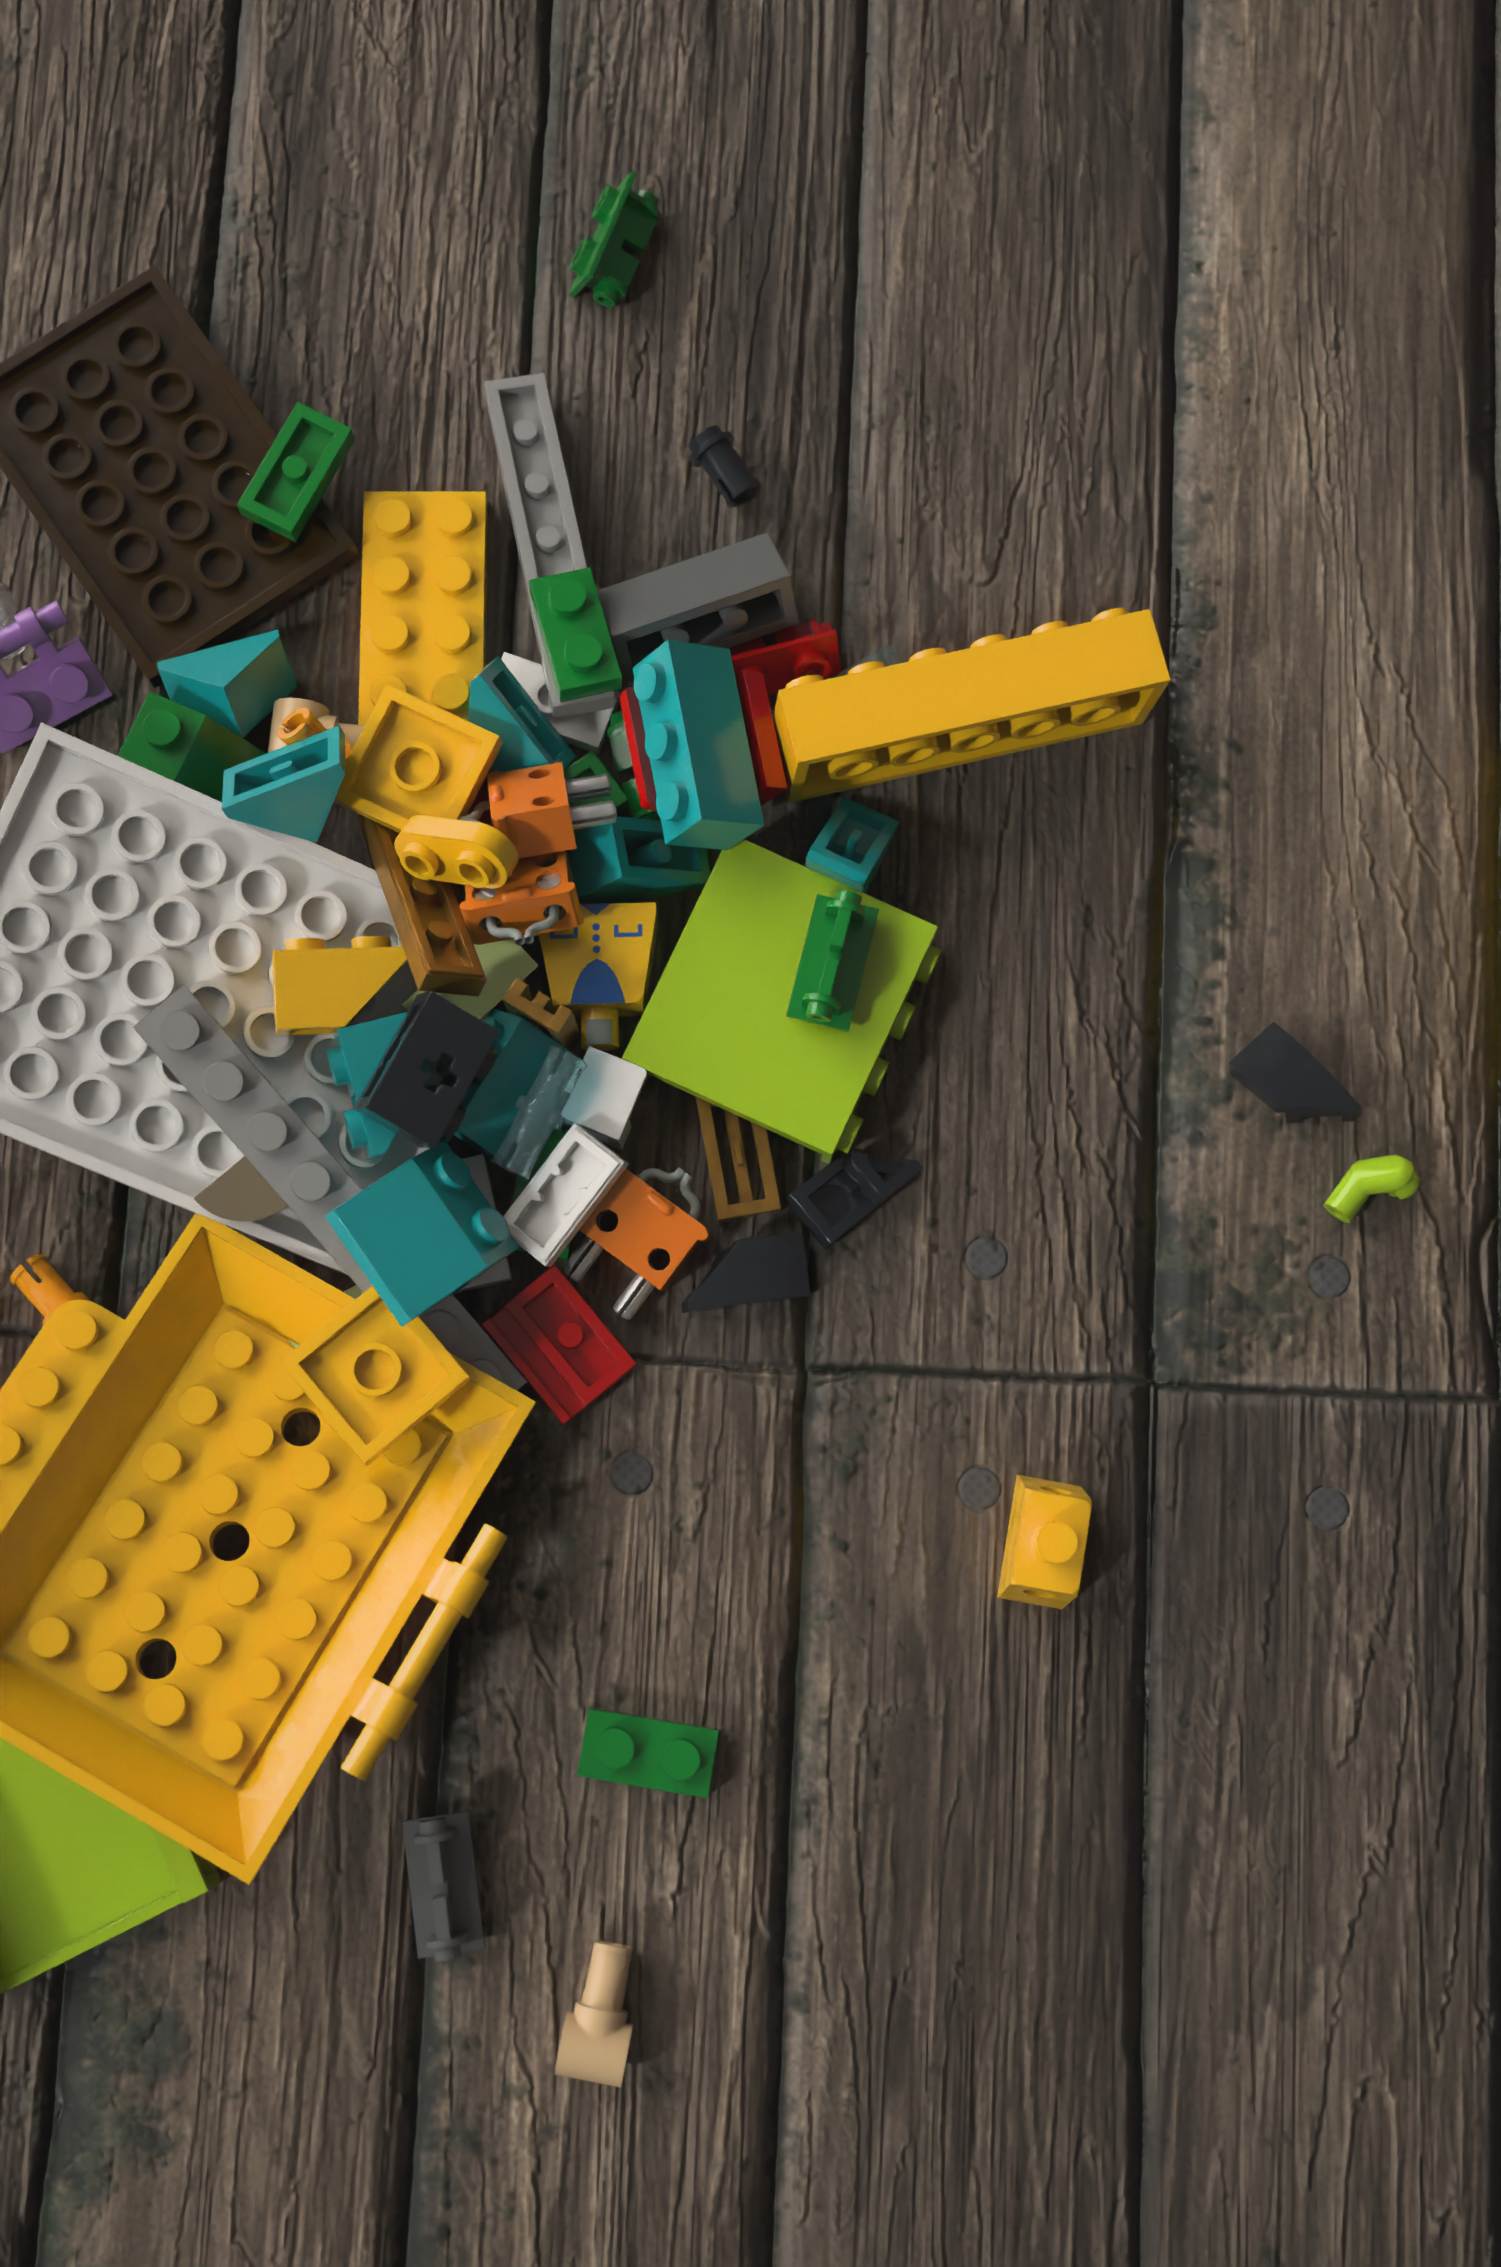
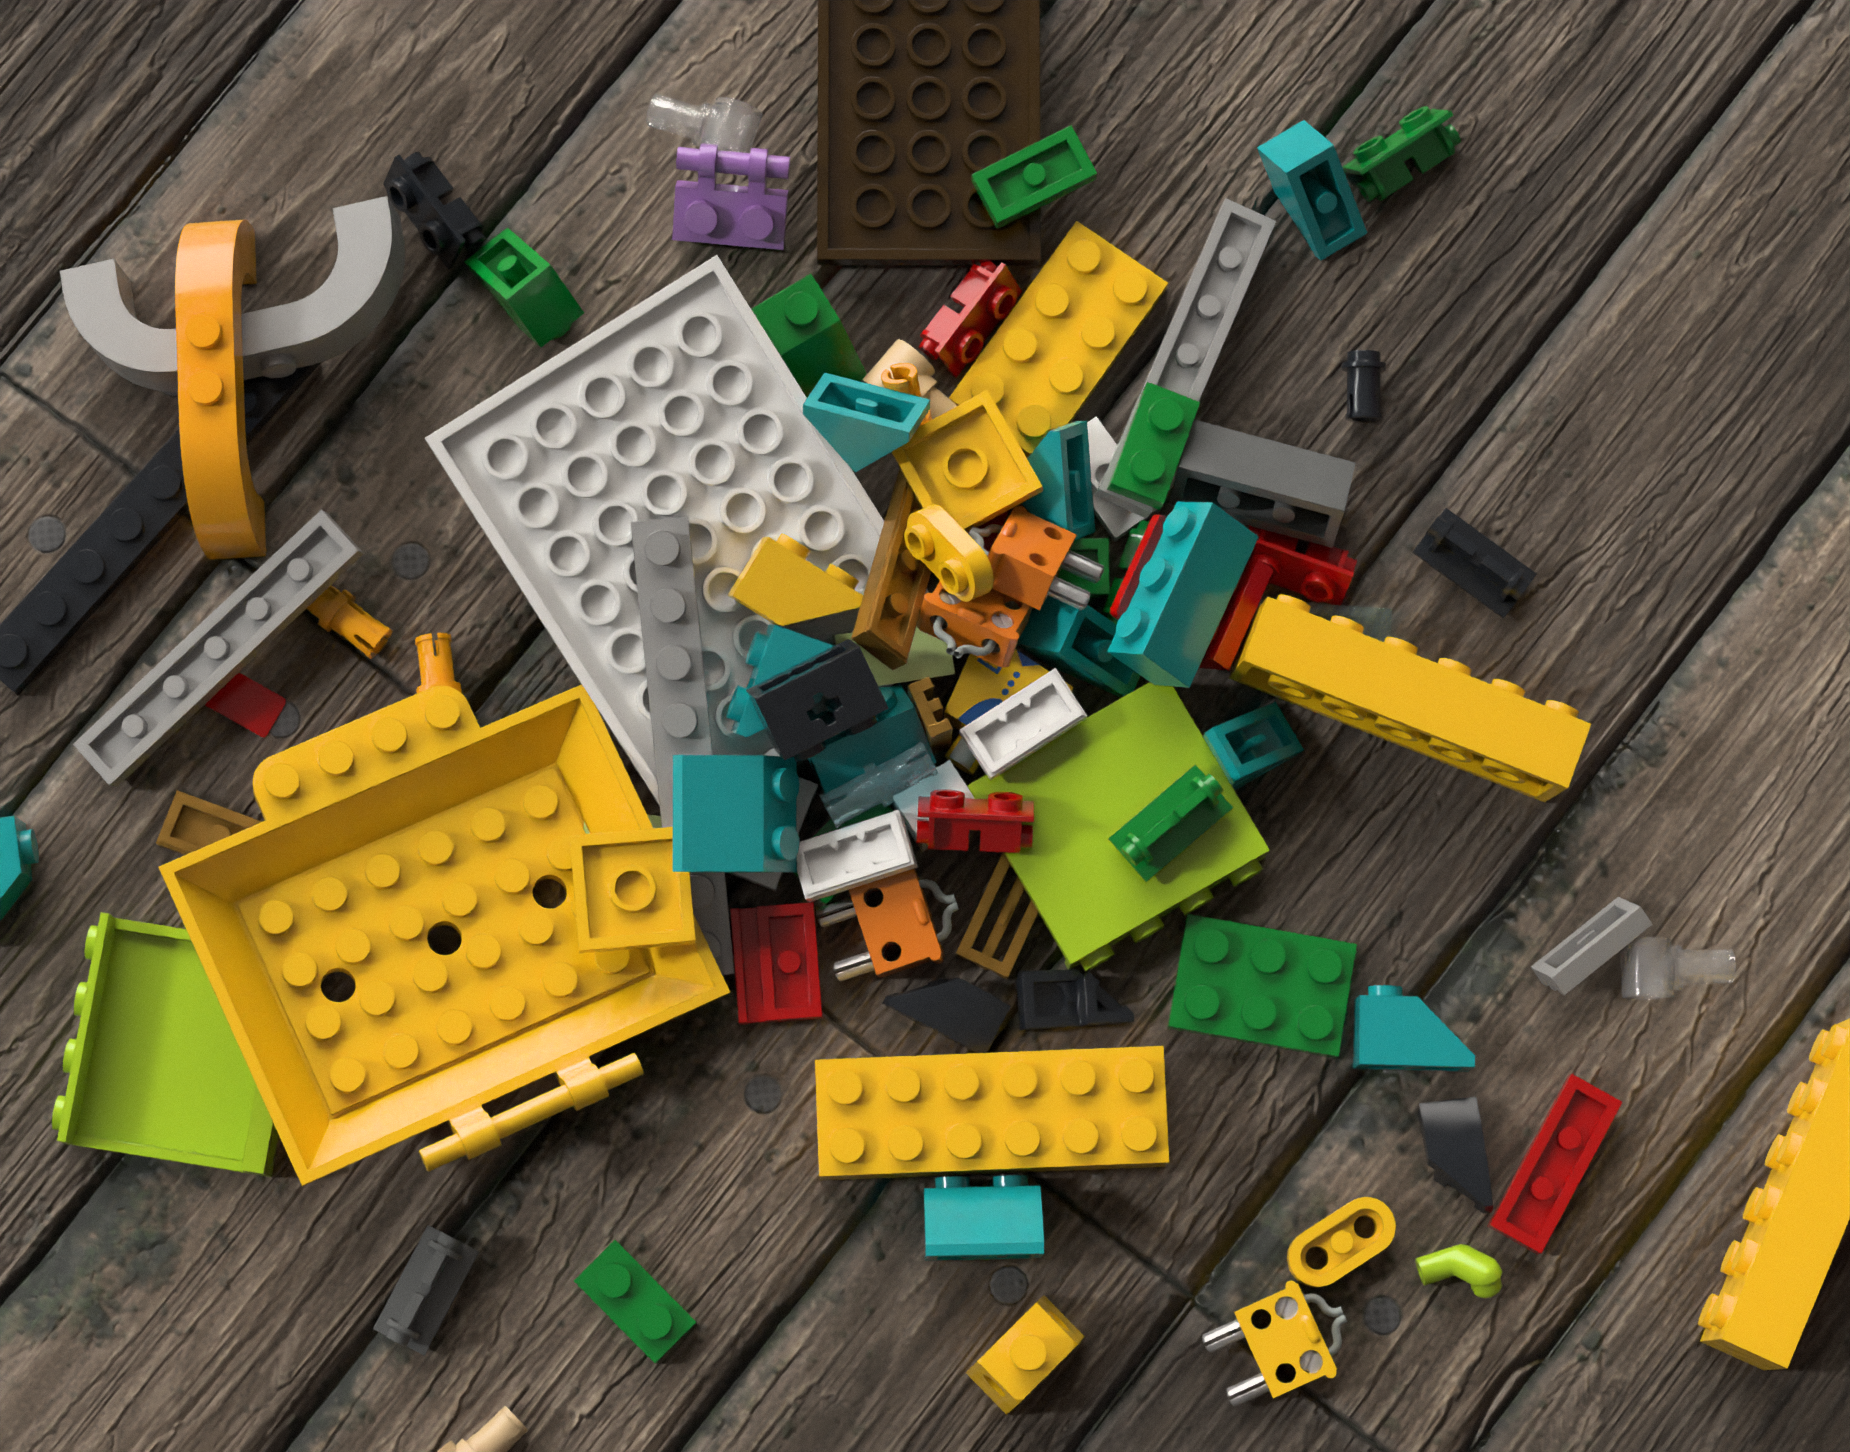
camera: 35 degrees right, 0 degrees up
(232, 680) = (876, 303): teal slope -> none
(241, 1195) = (623, 695): dark tan tile -> none
(330, 613) = (987, 297): none -> red hinge
(556, 322) = (1313, 188): none -> teal slope
(634, 965) = (1022, 724): none -> white plate
(671, 1068) = (954, 815): none -> red hinge
(854, 1342) = (991, 1113): none -> yellow brick
(919, 1447) = (983, 1220): none -> teal slope
(933, 555) = (1474, 563): none -> black hinge
(1013, 1056) = (1262, 986): none -> green plate
(1172, 1010) = (1403, 1035): none -> teal slope
(1250, 1238) = (1340, 1242): none -> yellow plate
(1265, 1358) = (1288, 1339): none -> yellow piece
(1279, 816) = (1591, 945): none -> light grey tile
(1351, 796) = (1656, 968): none -> clear pin
(1386, 1032) = (1554, 1164): none -> red plate

